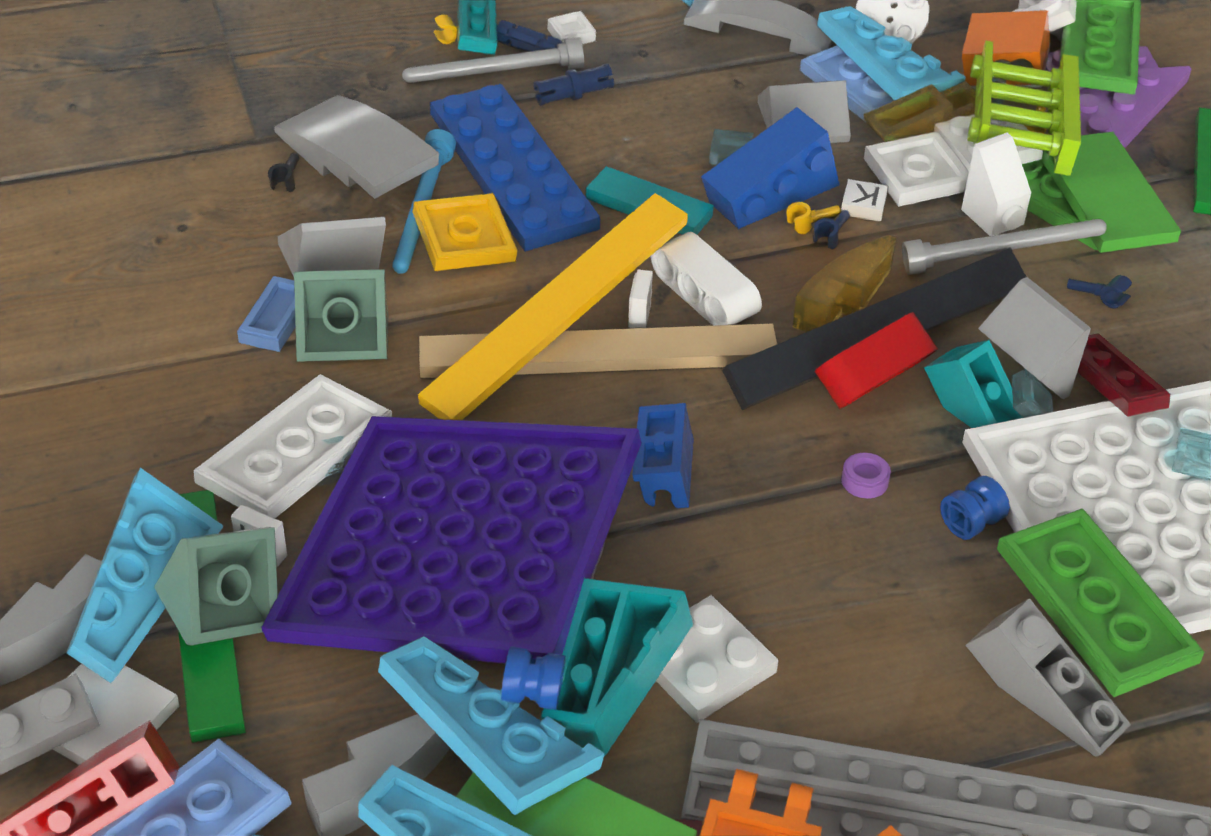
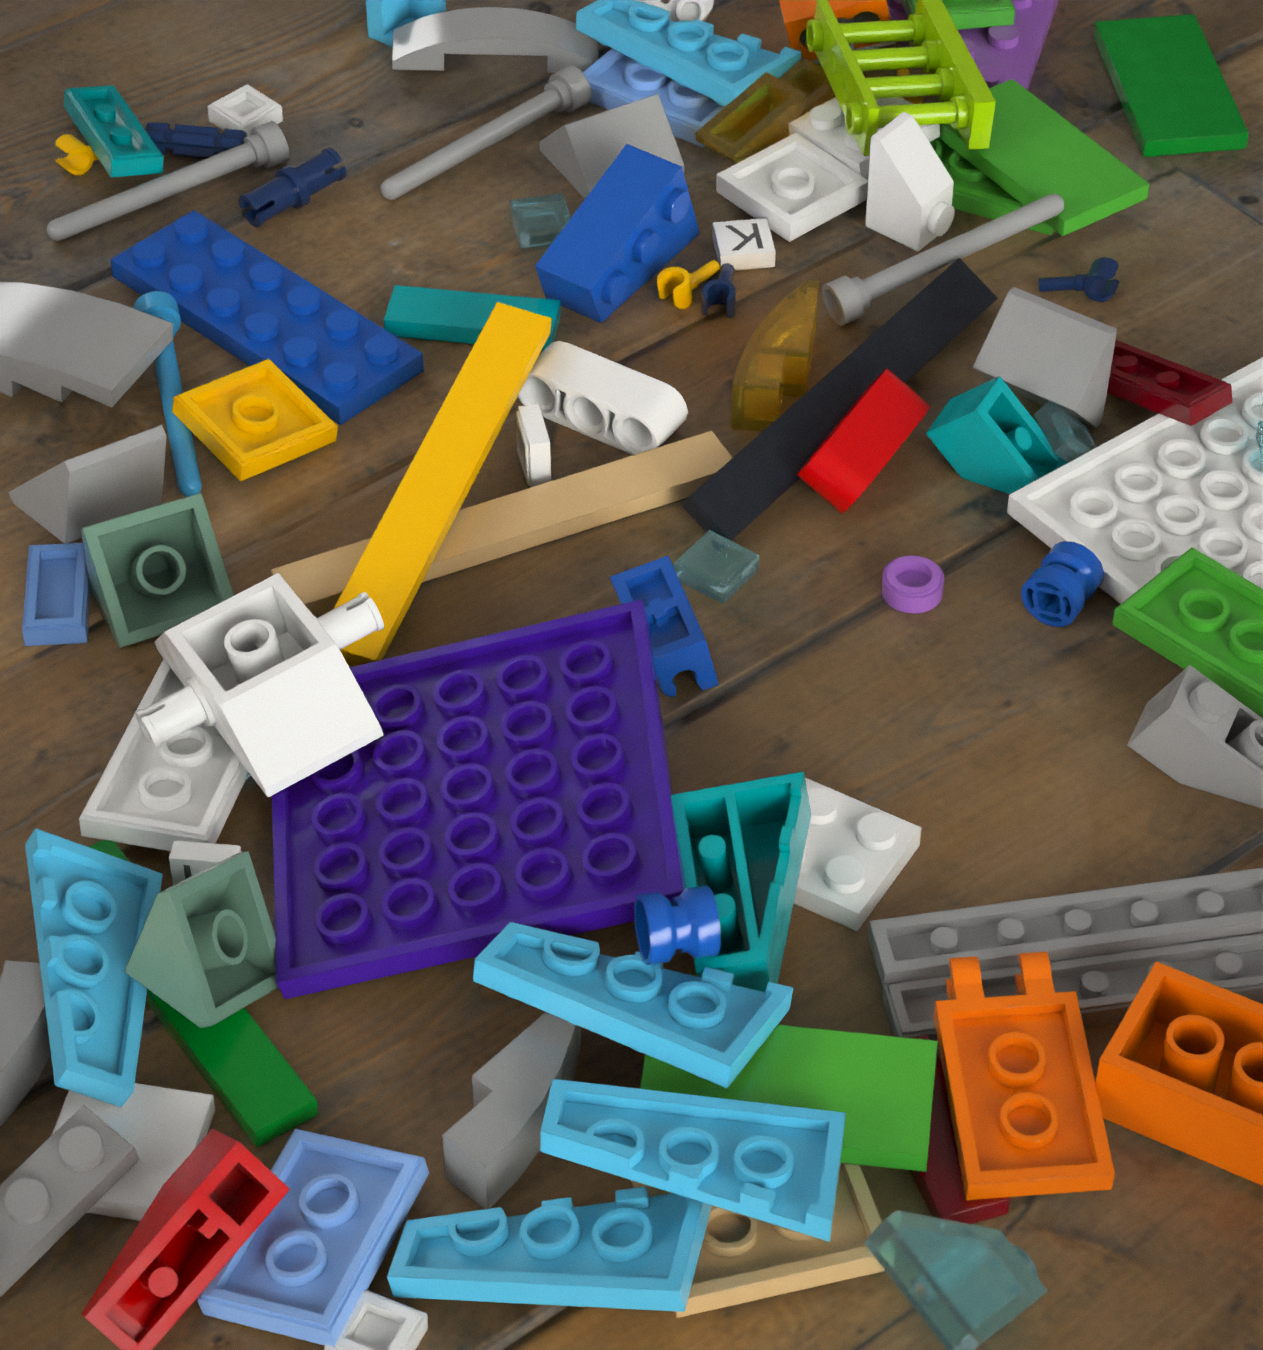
camera: 20 degrees left, 0 degrees up
(359, 413) = (269, 682): none -> white slope
(729, 421) = (716, 566): none -> clear light blue tile
(790, 66) = (564, 91): none -> light grey piece

